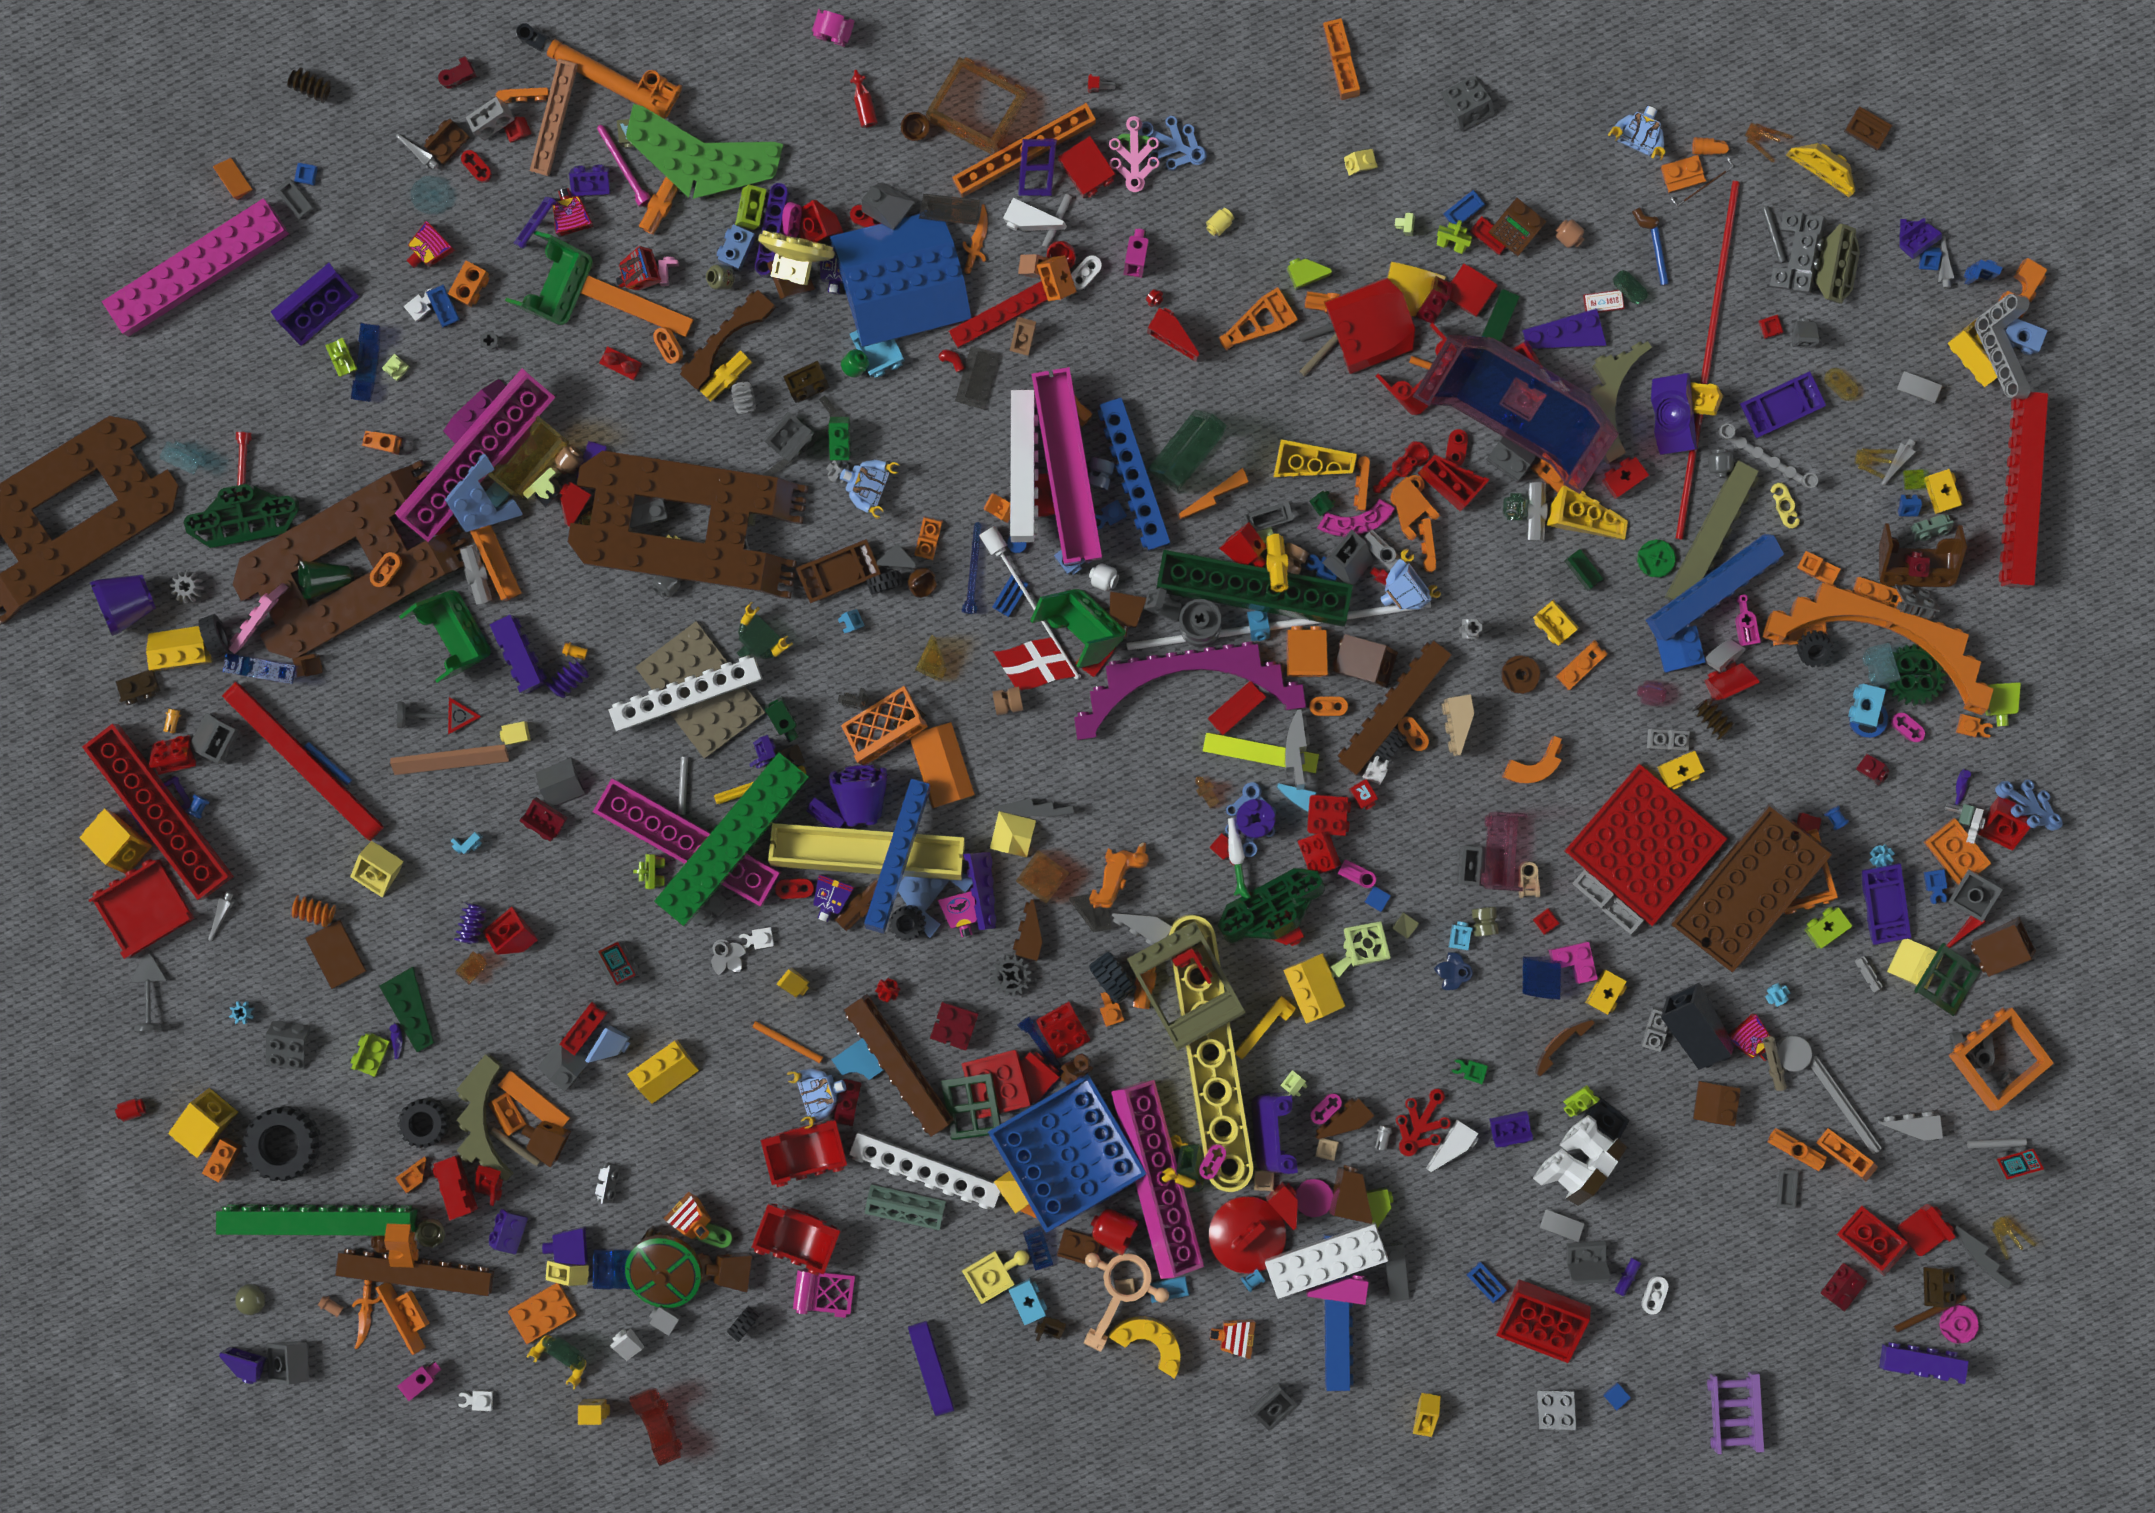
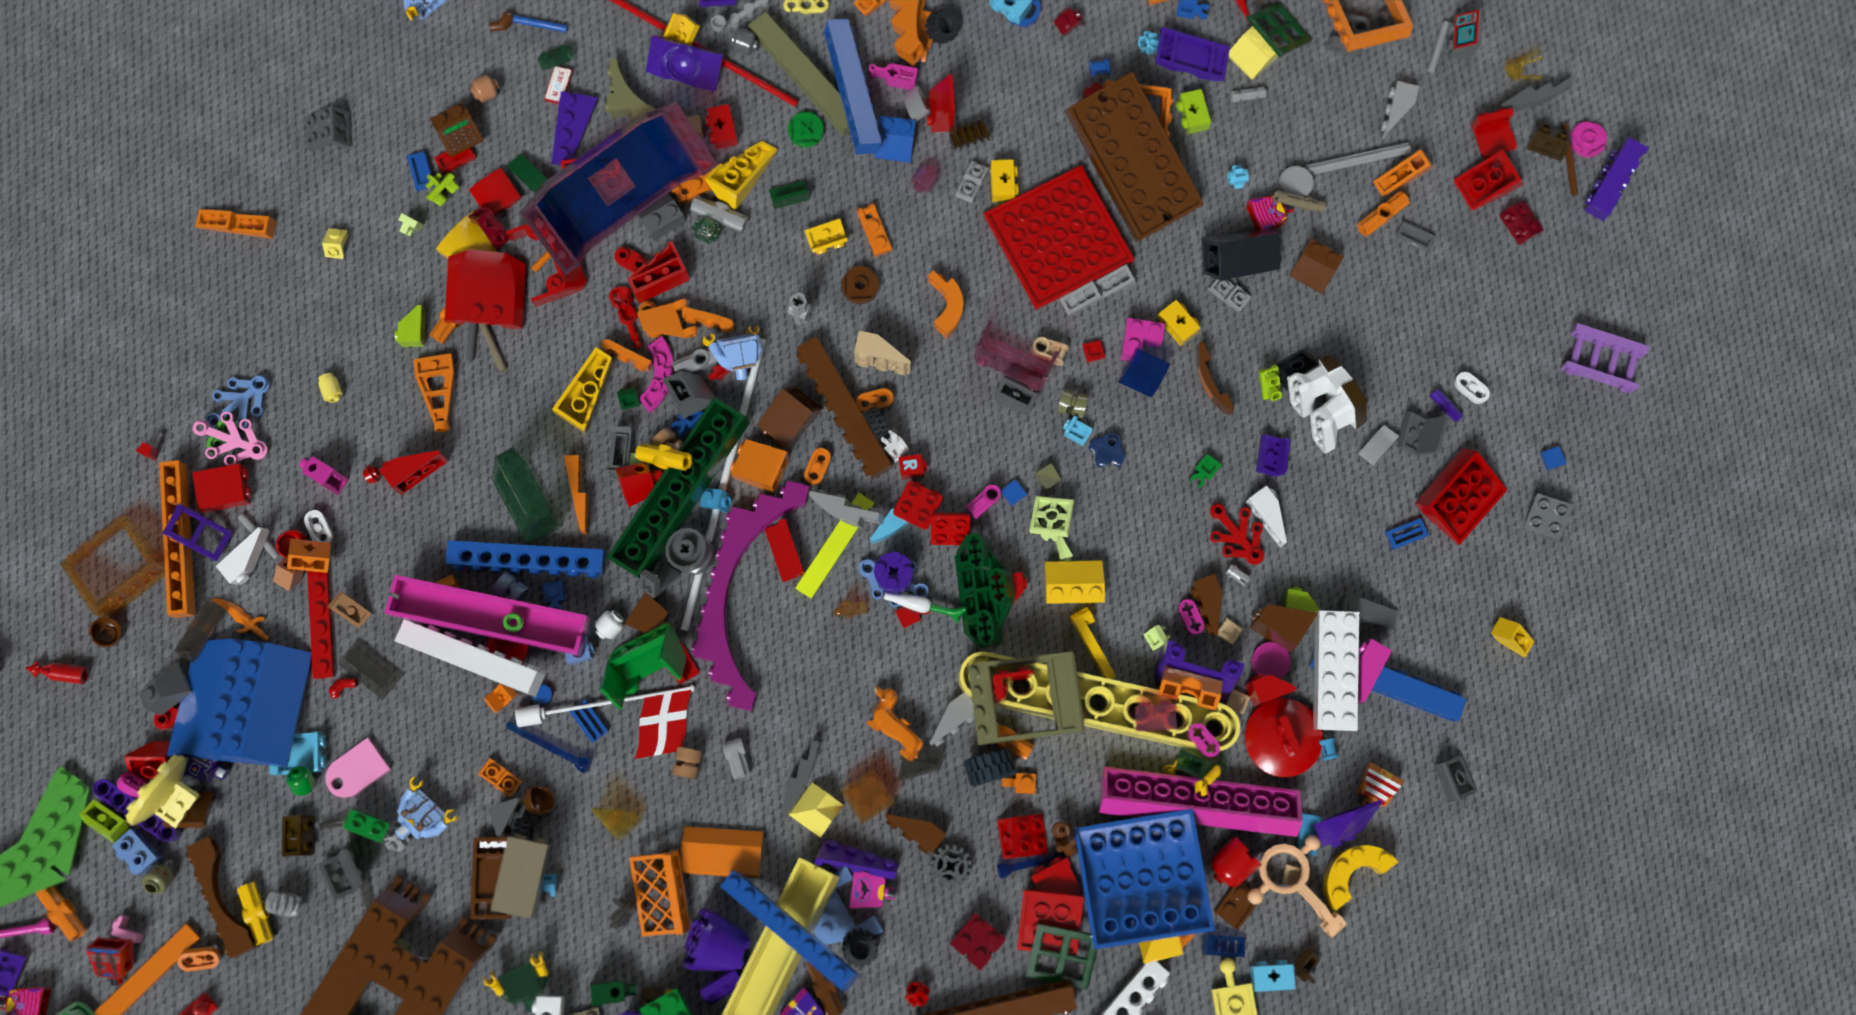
camera: 80 degrees left, 10 degrees down
(850, 599) = (521, 876): none -> dark tan slope
(885, 407) = (357, 769): none -> bright pink tile
(1033, 741) = (735, 754): none -> light grey piece
(1069, 486) = (506, 622): none -> bright green plate
(1188, 1318) = (1345, 824): none -> dark purple slope
(1216, 1110) = (1155, 717): none -> clear pink bracket
(1260, 1143) = (1203, 688): none -> orange arch

